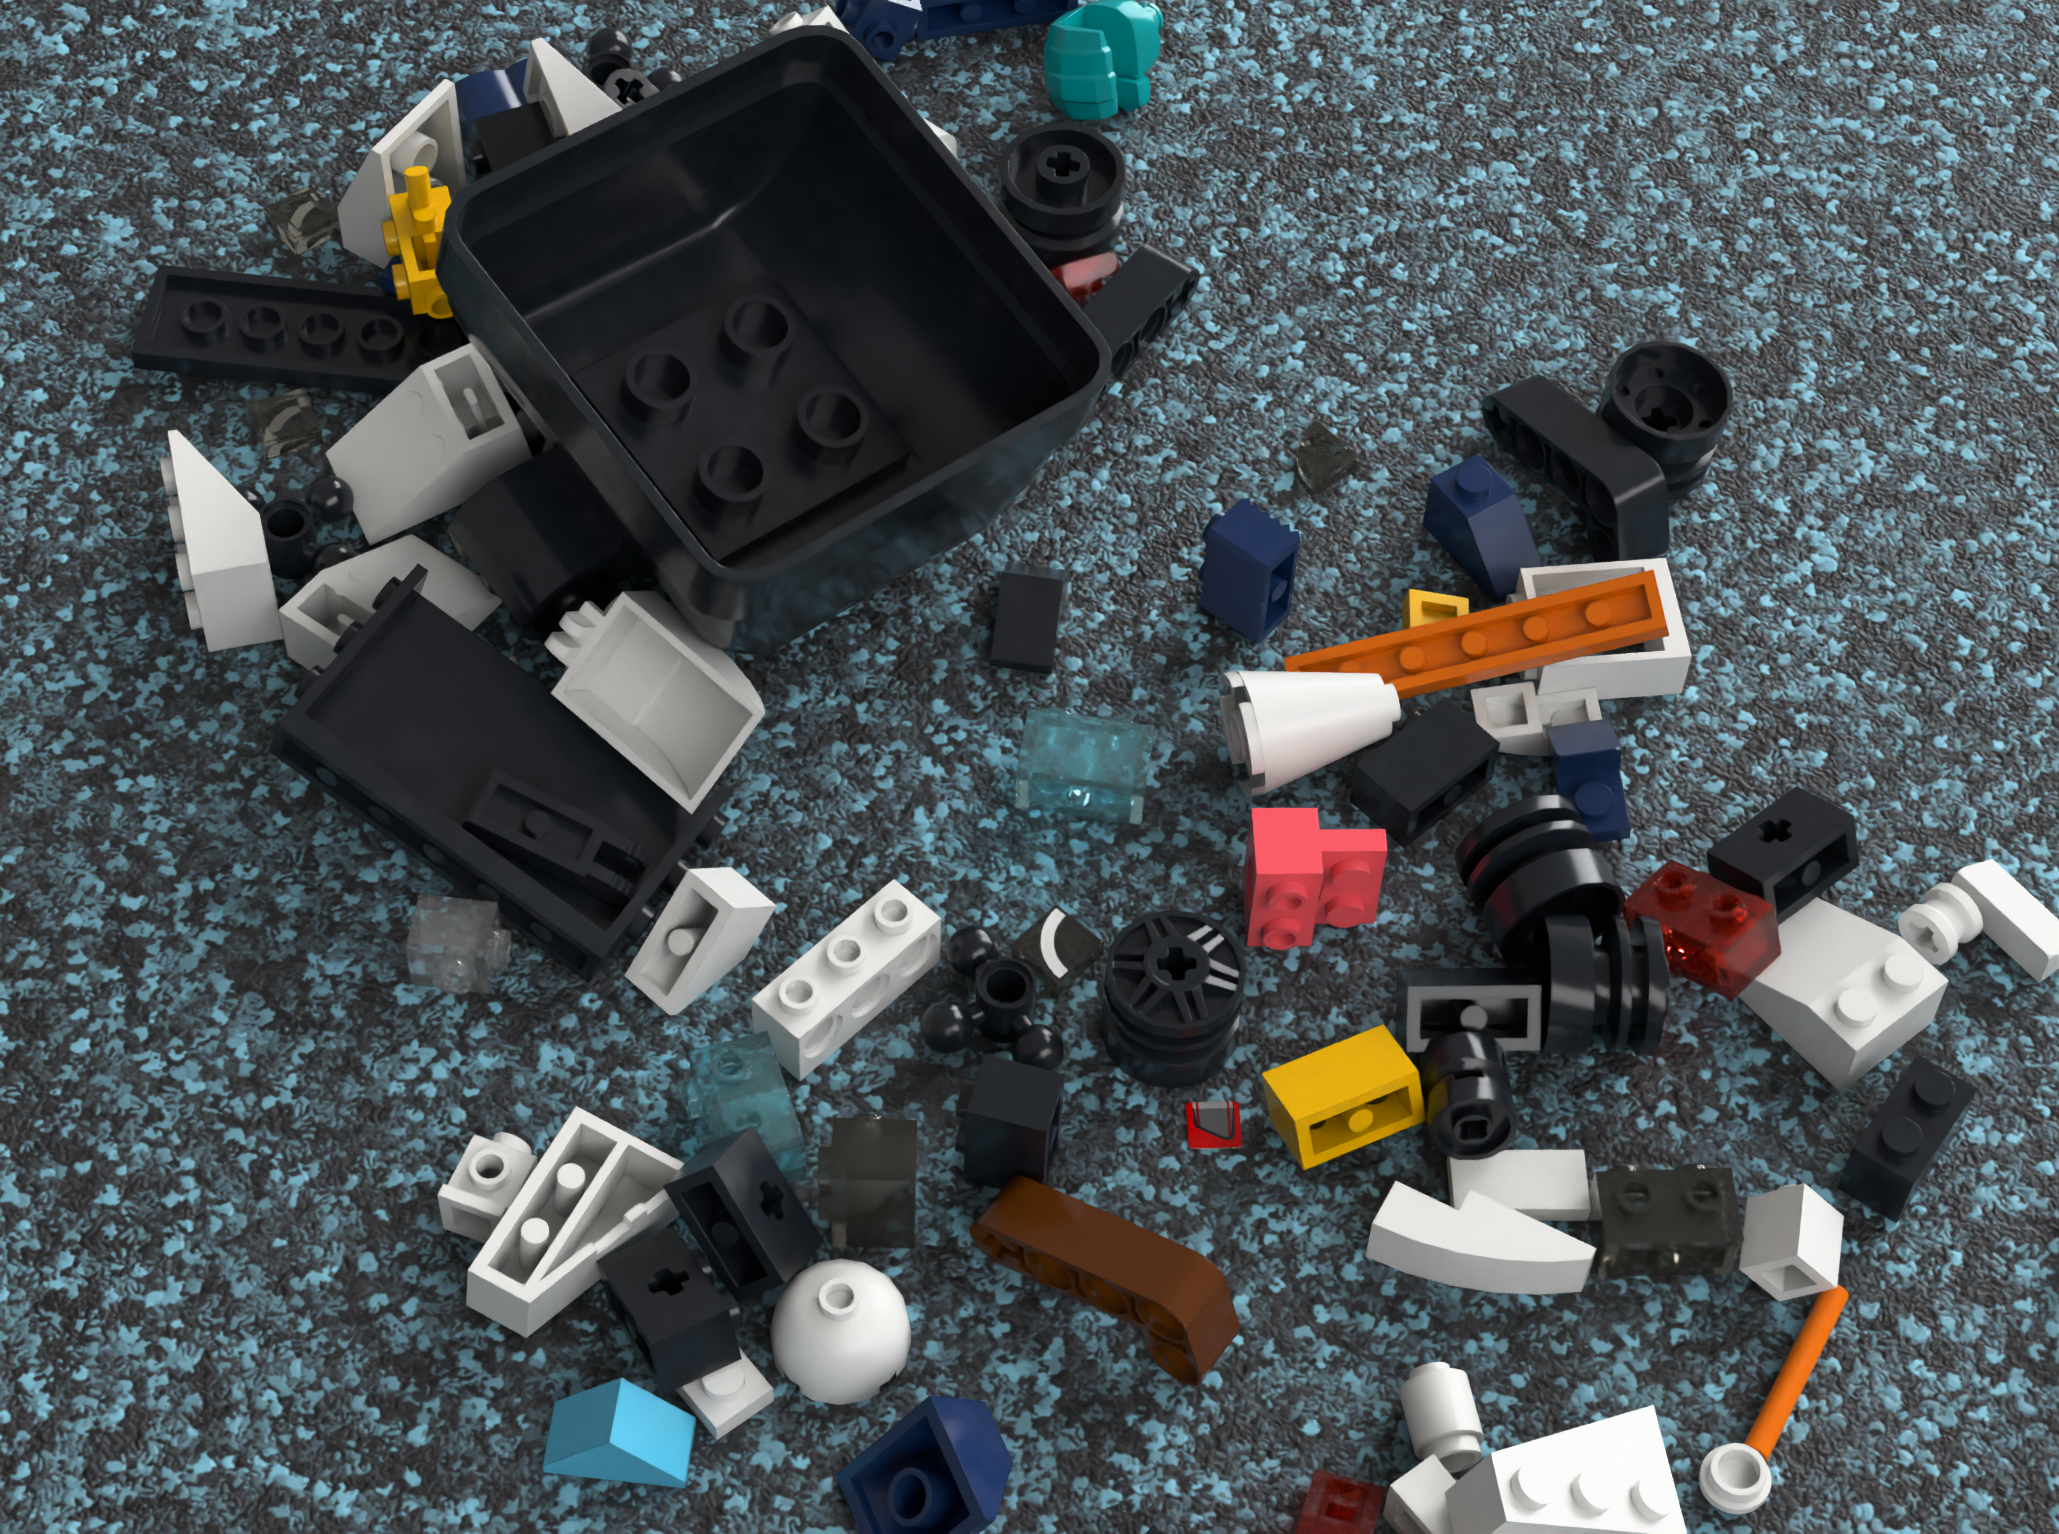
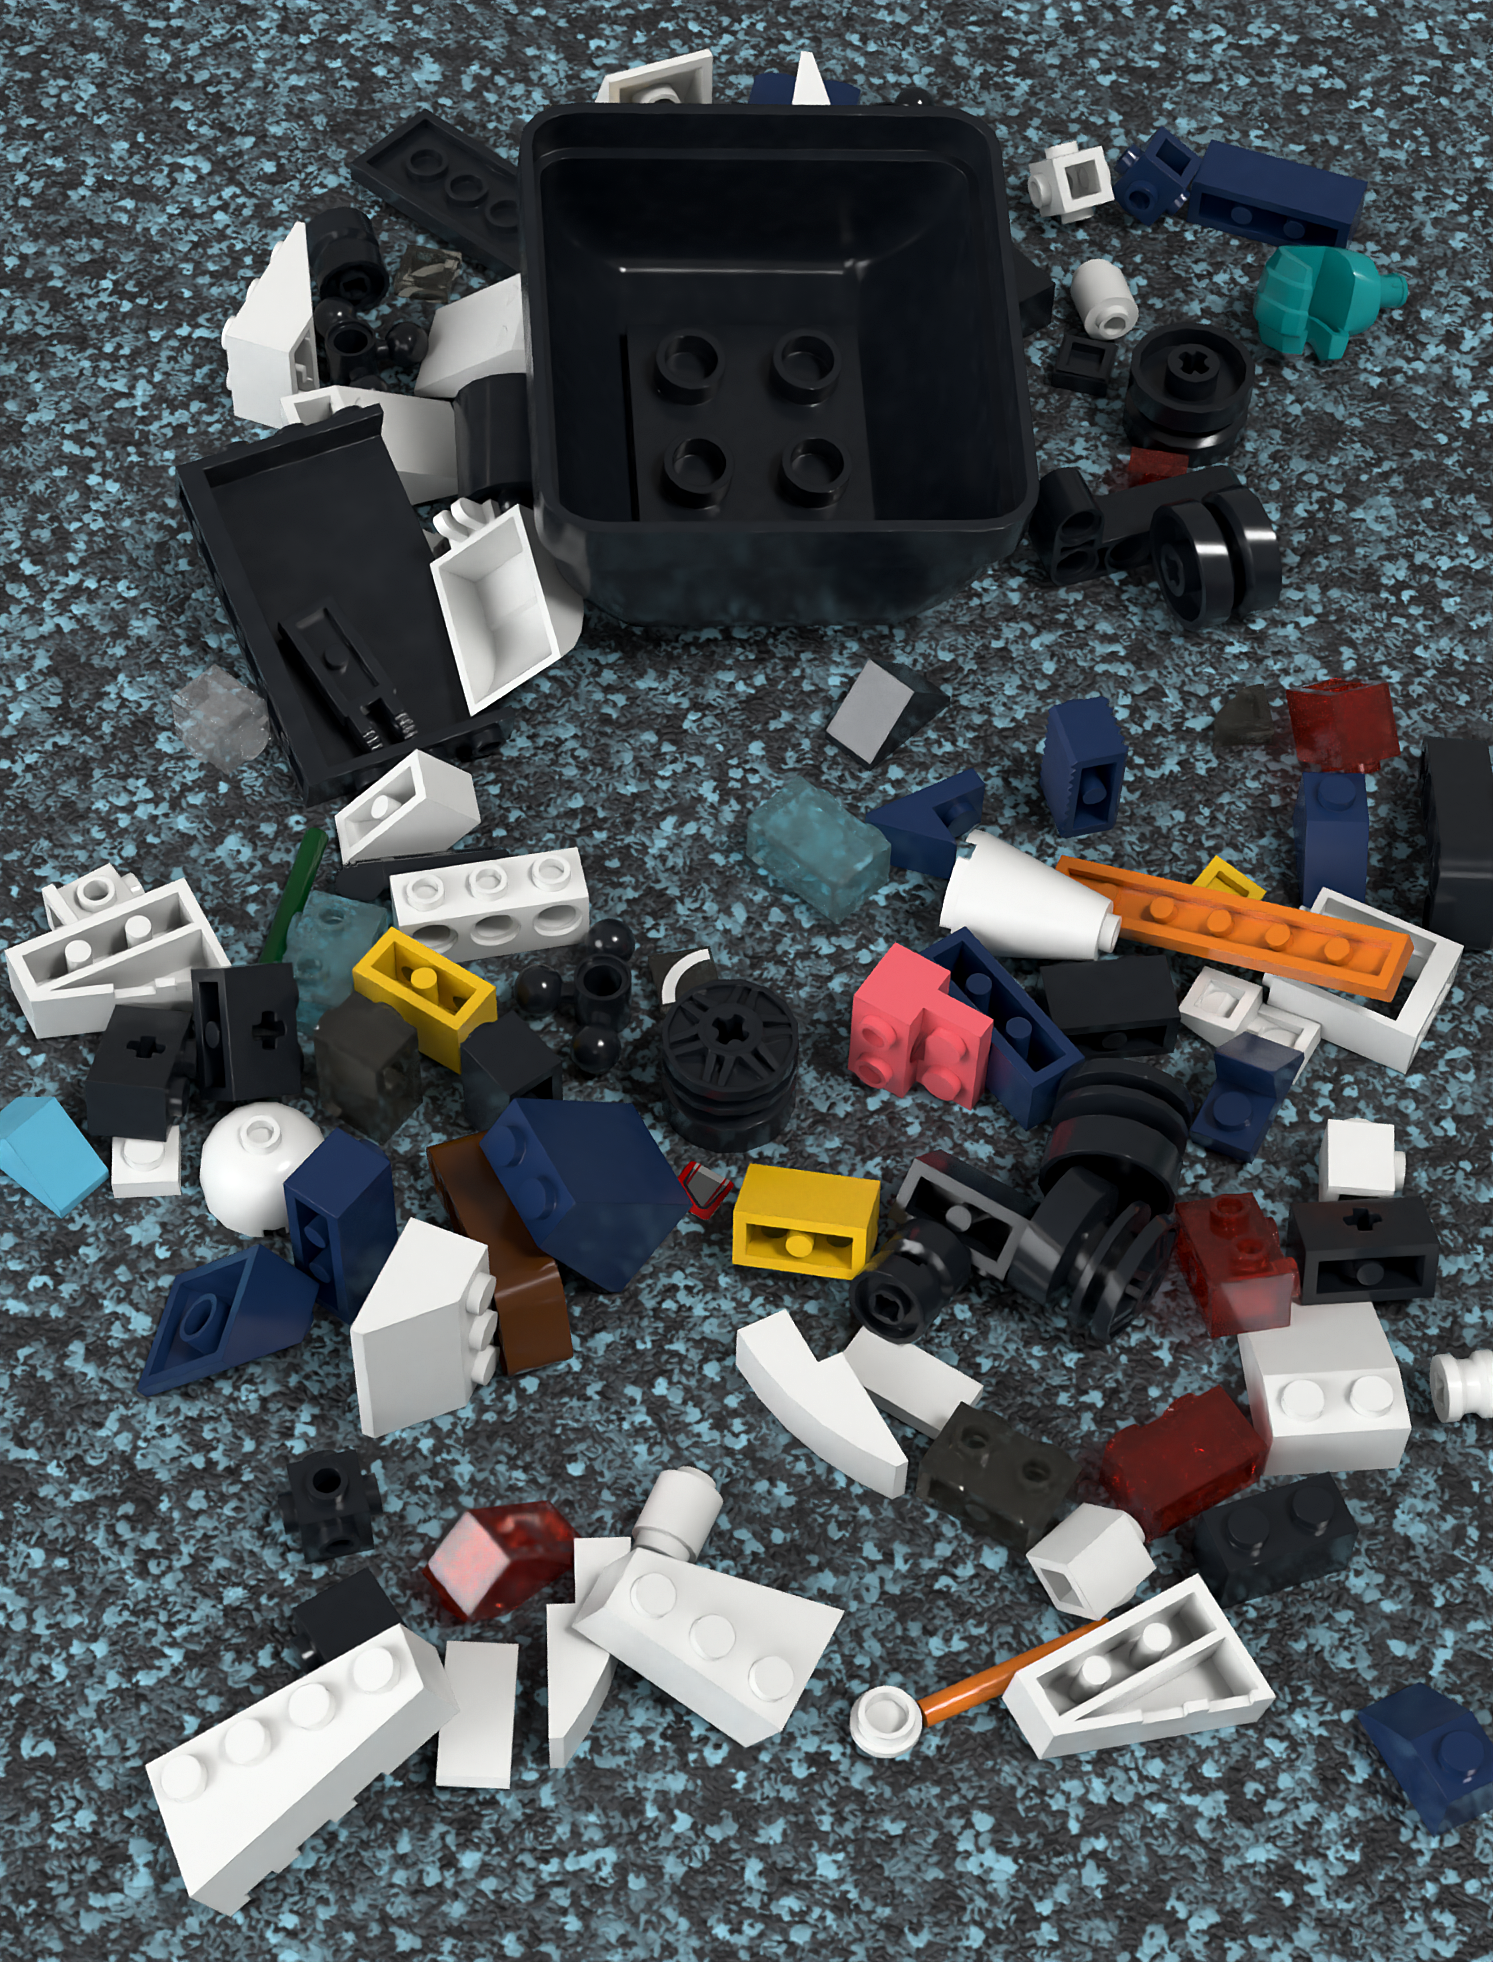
camera: 35 degrees right, 0 degrees up
(222, 441) = (347, 257): none -> black wheel
(655, 1077) = (295, 893): none -> dark green bar
(720, 1005) = (370, 876): none -> black hinge
(864, 1079) = (427, 992): none -> yellow brick
(990, 1327) = (342, 1220): none -> dark blue brick
(1134, 1375) = (424, 1330): none -> white slope
(1154, 690) = (928, 820): none -> dark blue slope
(1167, 1166) = (587, 1183): none -> dark blue slope
(1209, 328) = (1215, 557): none -> black wheel
(1418, 839) = (1026, 1046): none -> dark blue brick
(1426, 419) = (1343, 724): none -> clear red brick
(1720, 790) = (1359, 1161): none -> white brick
(1793, 1115) = (1182, 1461): none -> clear red brick
(1904, 1309) = (1141, 1678): none -> white wedge

